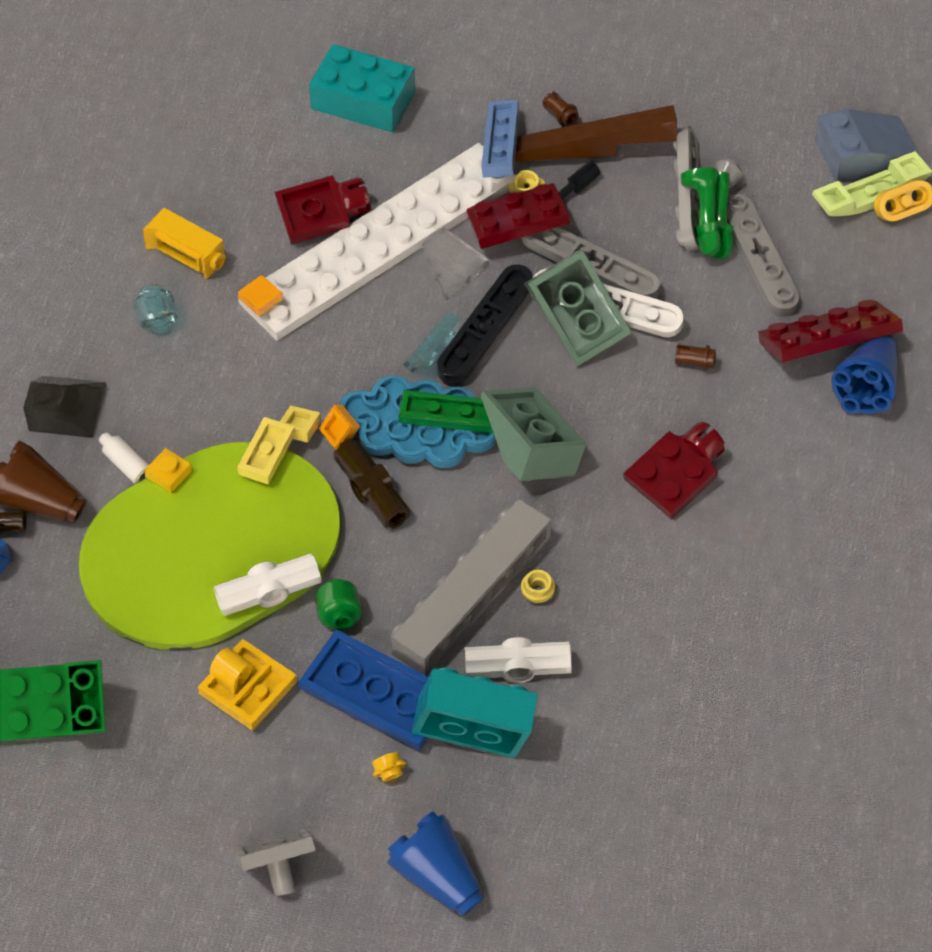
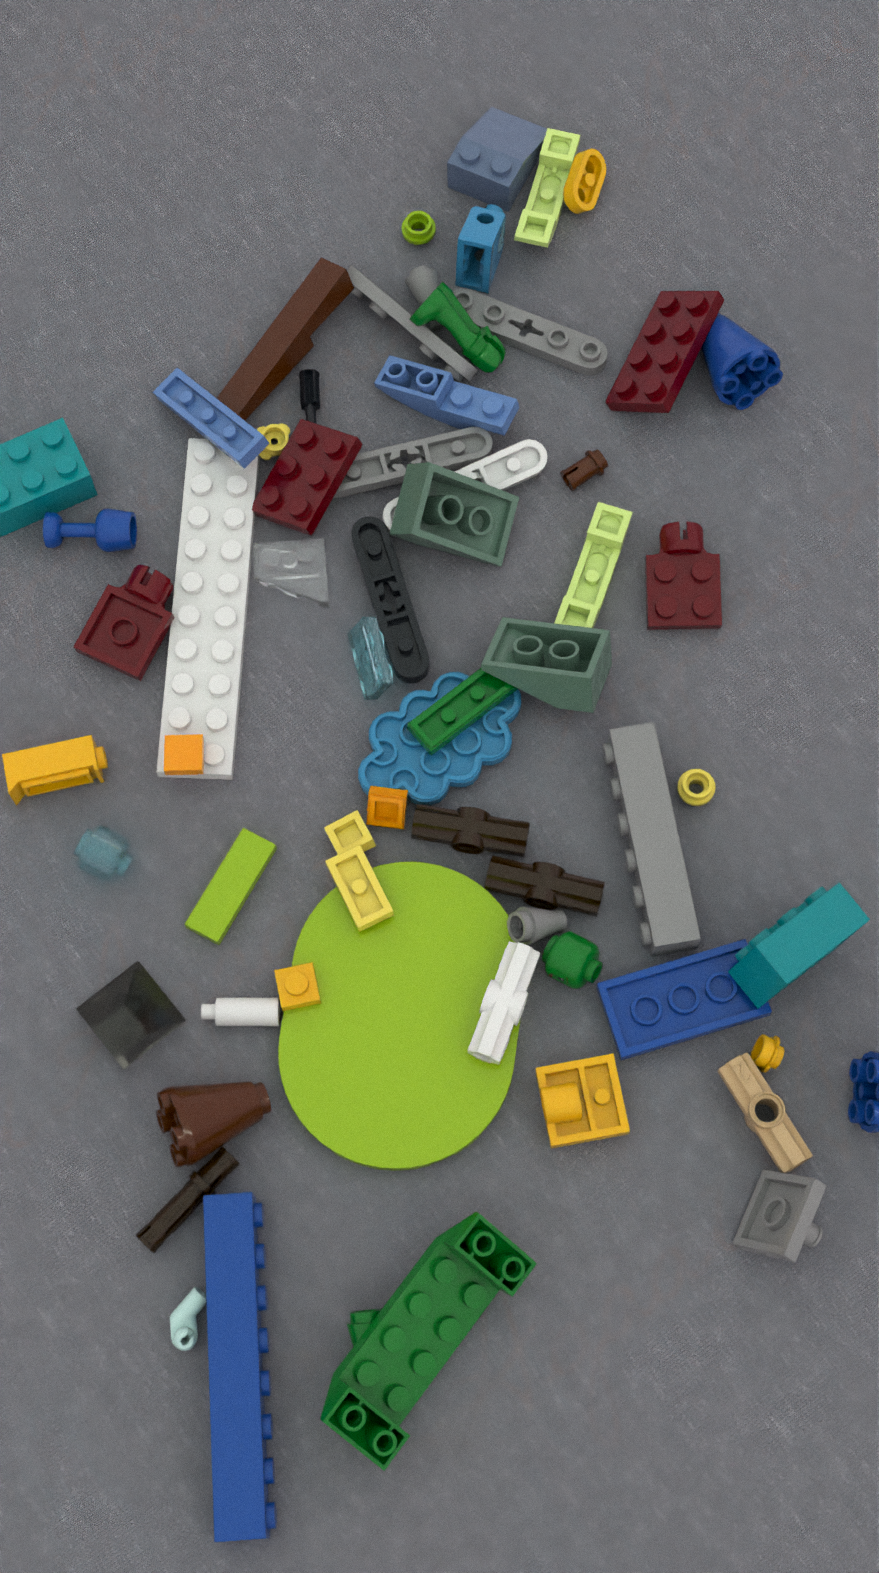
camera: 45 degrees left, 15 degrees up
(203, 391) = (230, 886): none -> lime tile
(337, 811) = (777, 1136): none -> tan piece
(341, 564) = (534, 924): none -> light grey cone
(370, 151) = (112, 530): none -> blue piece
(375, 552) = (544, 885): none -> dark brown piece
(518, 660) = (756, 864): white piece -> none
(565, 112) = (219, 344): reddish brown pin -> none
(632, 416) = (595, 566): none -> yellowish green slope
(657, 243) = (443, 399): none -> medium blue slope
(763, 144) = (418, 220): none -> lime plate
(784, 180) = (485, 231): none -> dark azure torso

